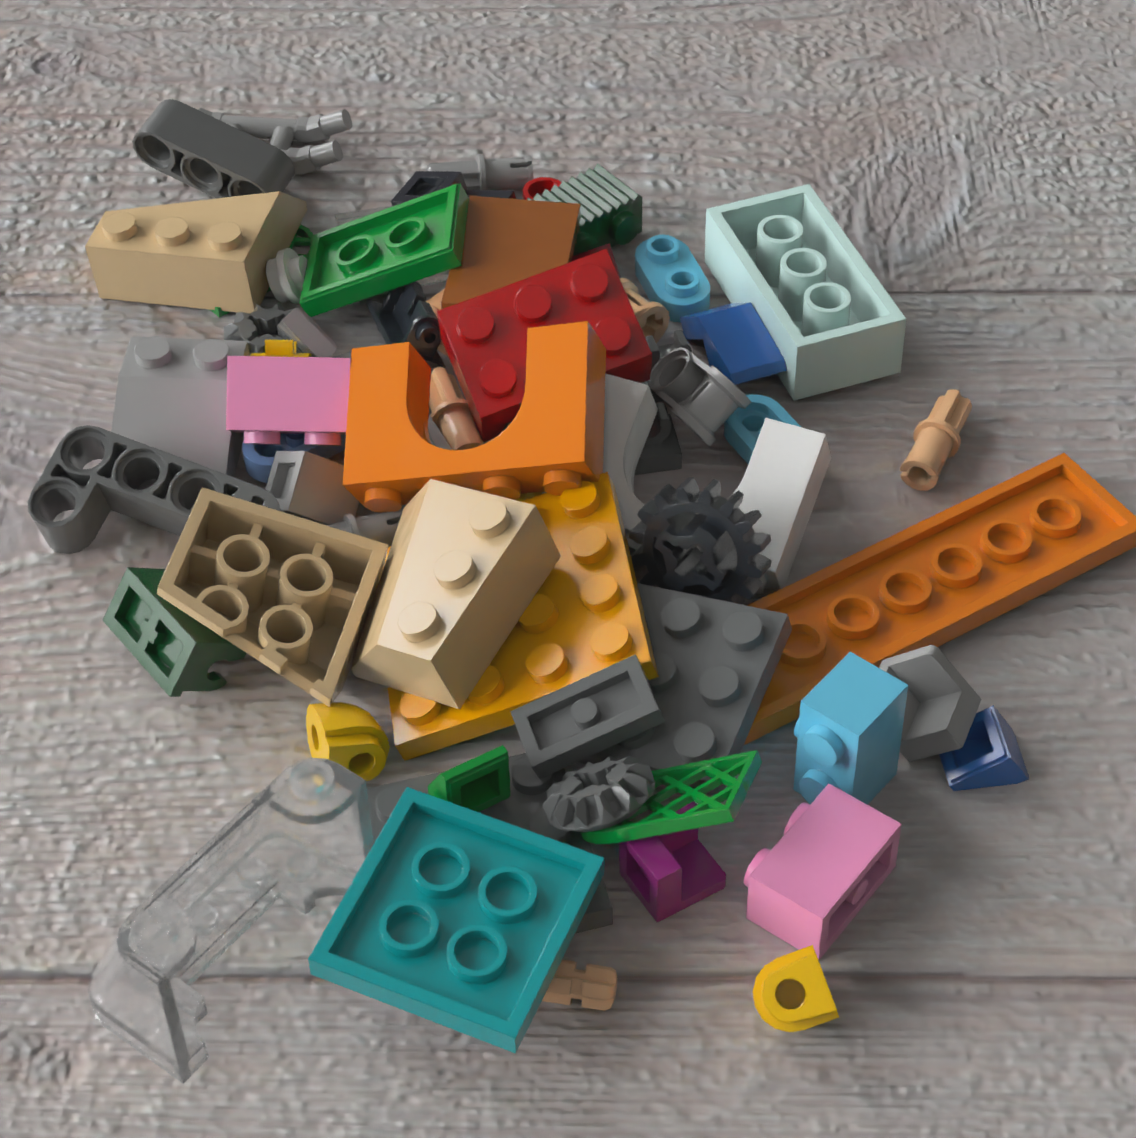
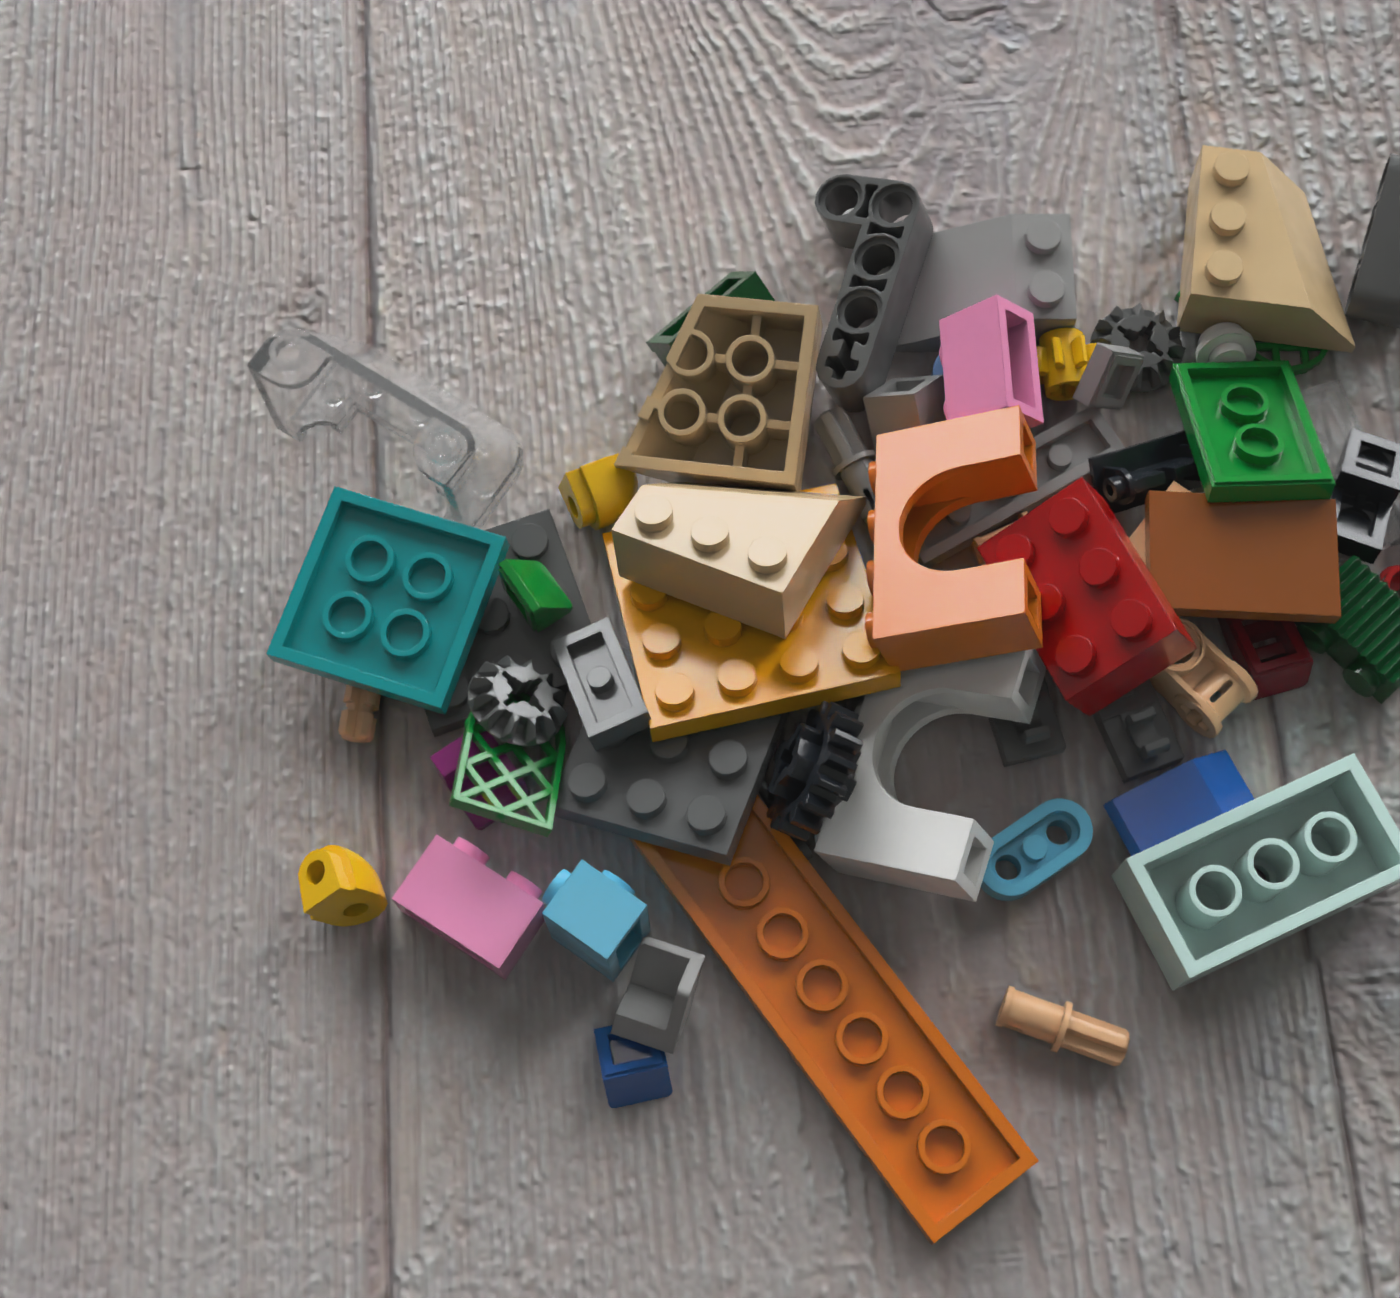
camera: 85 degrees right, 25 degrees up
(672, 276) = (1299, 737): medium azure plate -> none
(696, 392) = (1067, 764): light grey piece -> none

